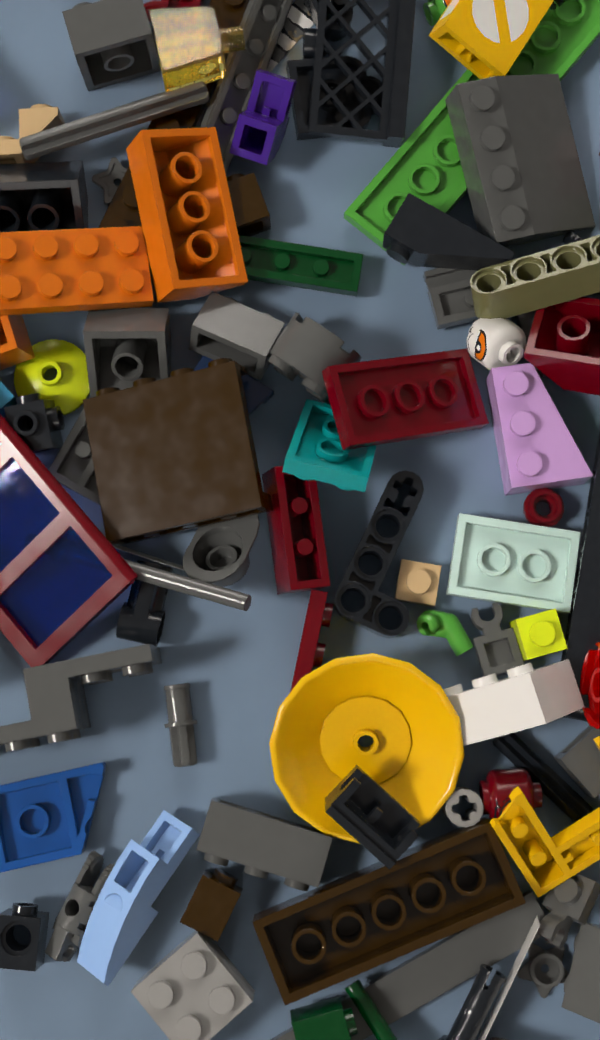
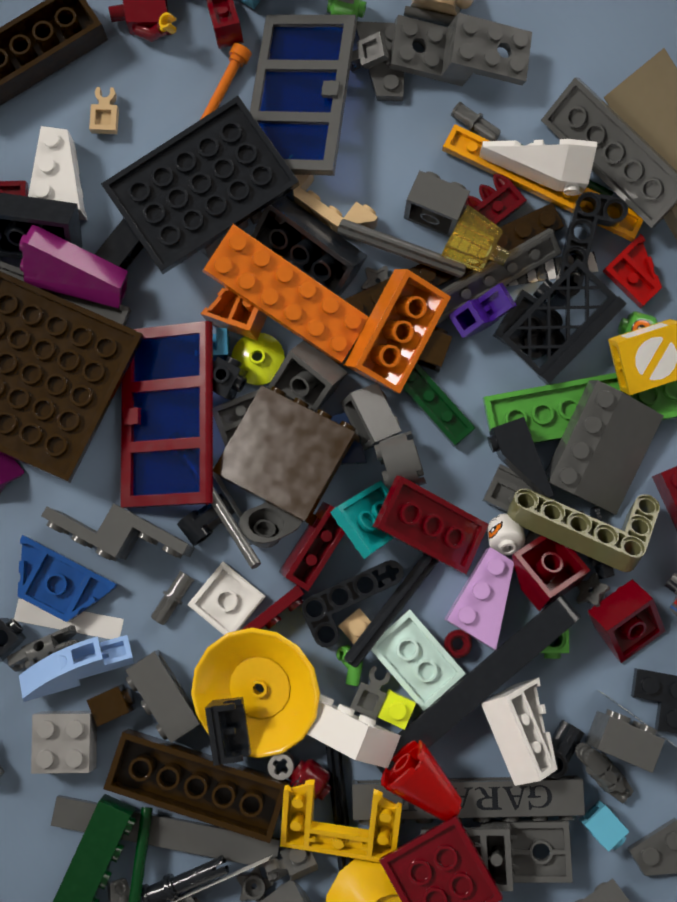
camera: 35 degrees right, 0 degrees up
(103, 838) = (85, 623): none -> white sticker
(244, 675) = (226, 600): none -> white tile
(439, 532) = (390, 610): none -> black axle

